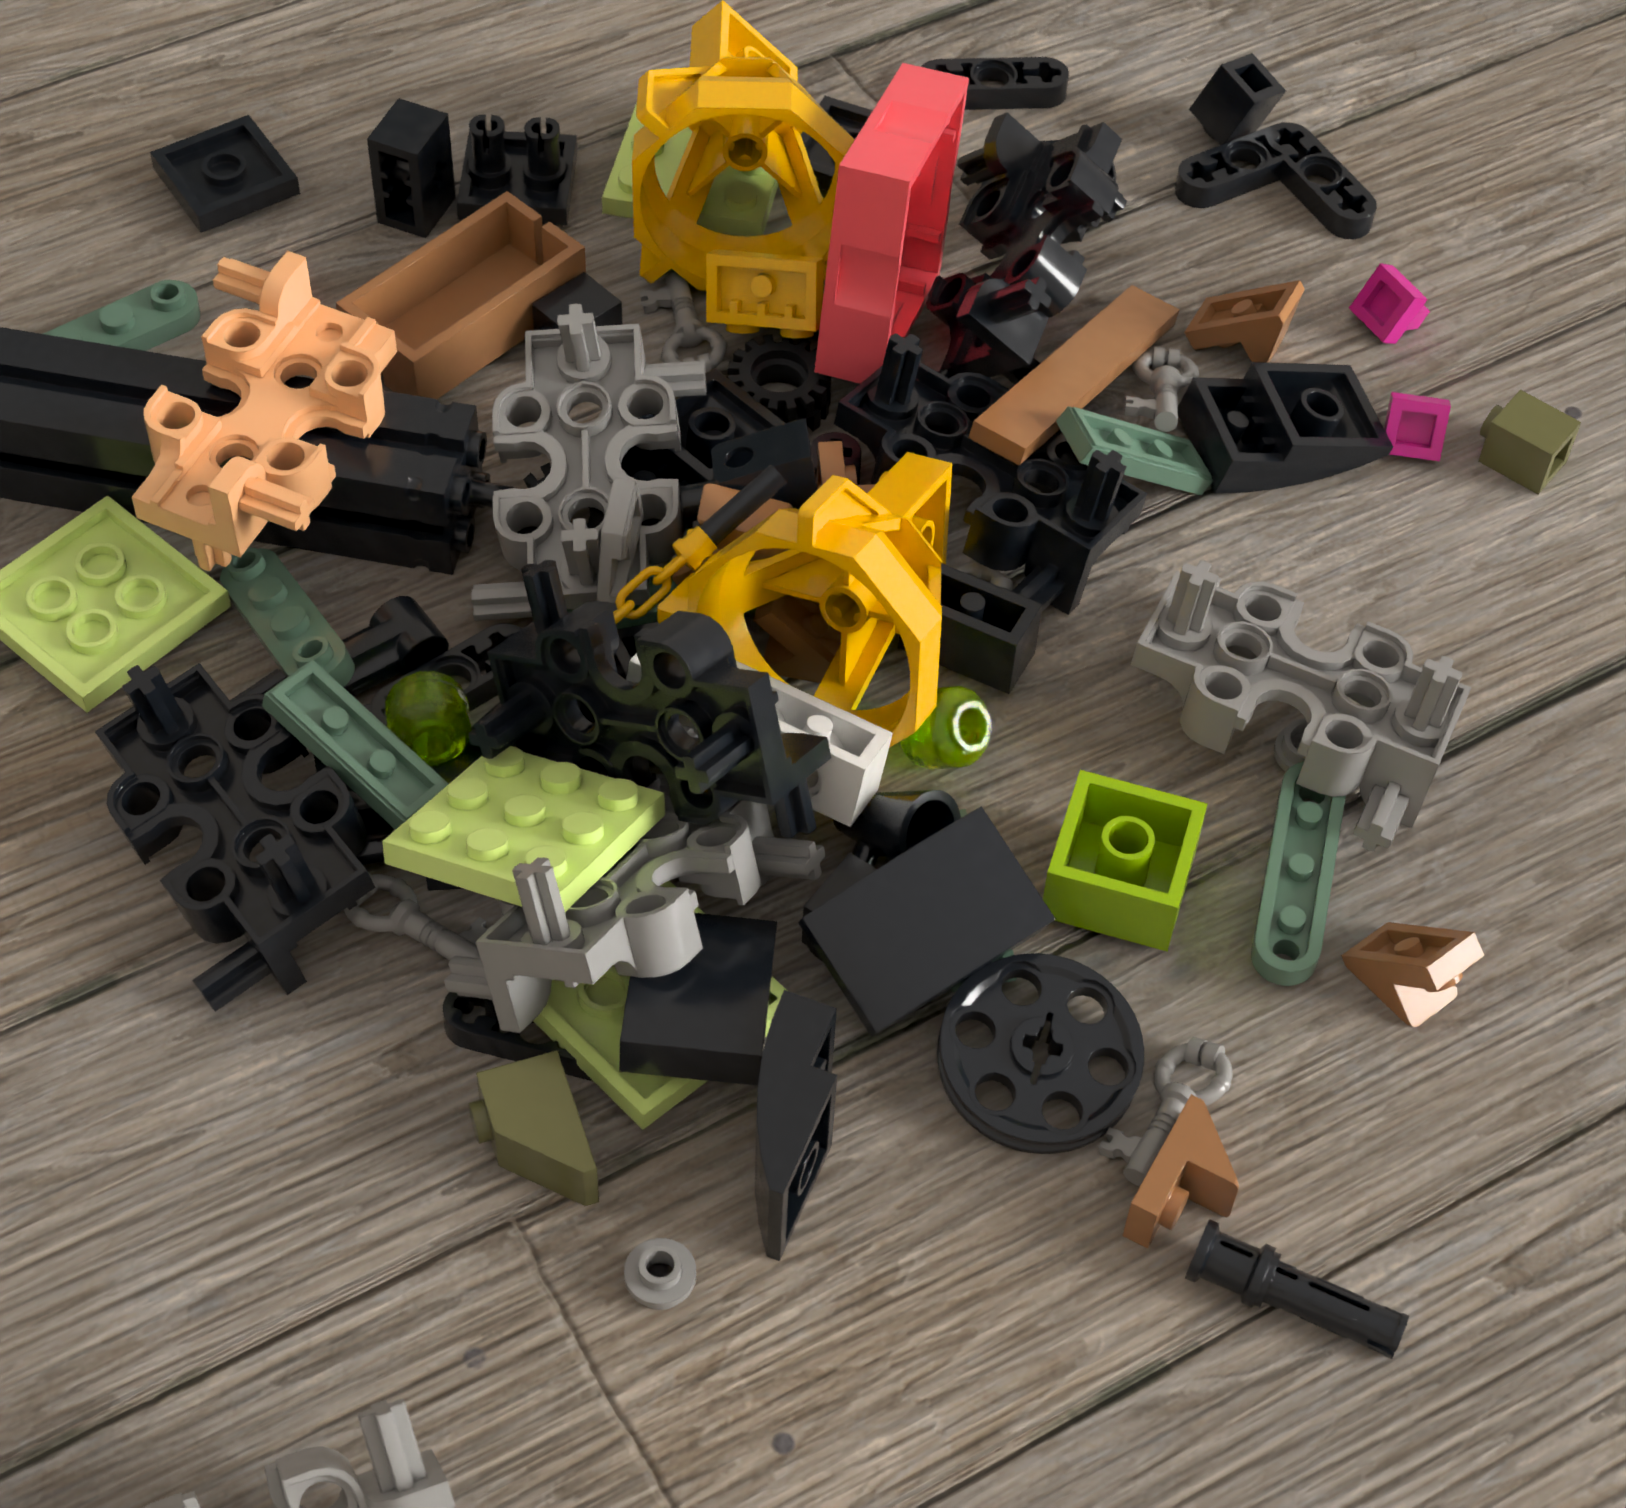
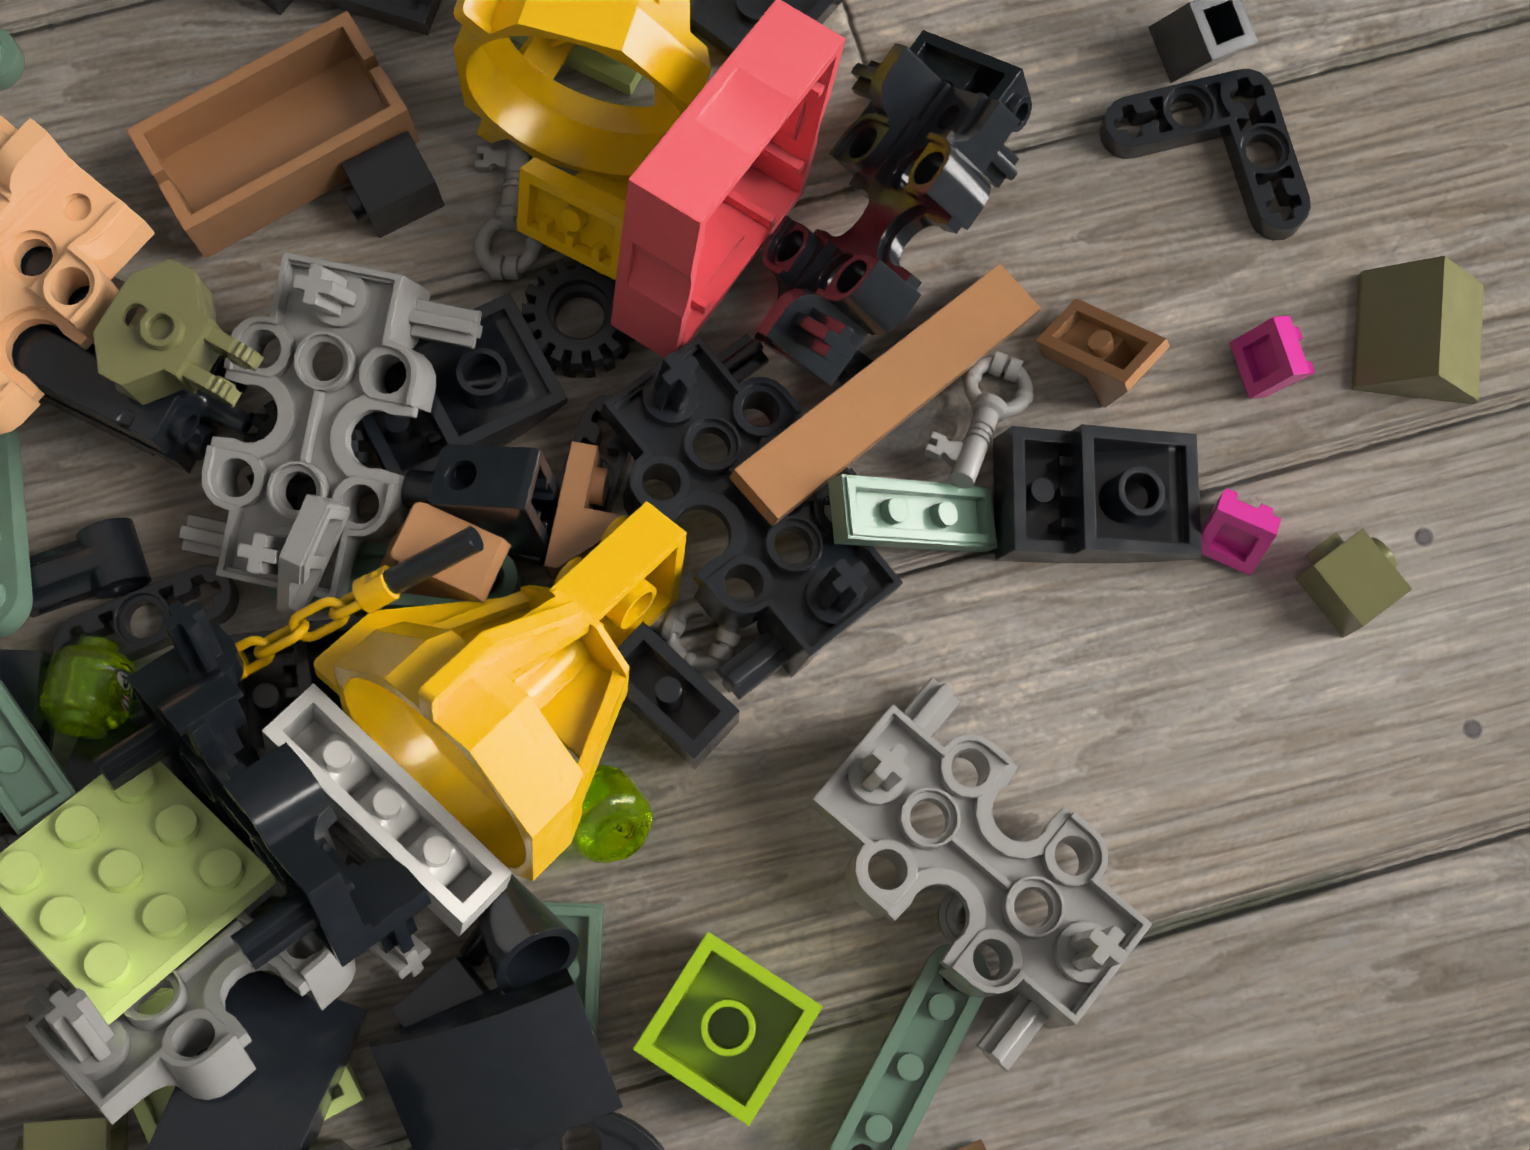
camera: 15 degrees right, 25 degrees up
(453, 401) = (169, 339): none -> olive hinge
(1501, 269) = (1419, 331): none -> olive slope

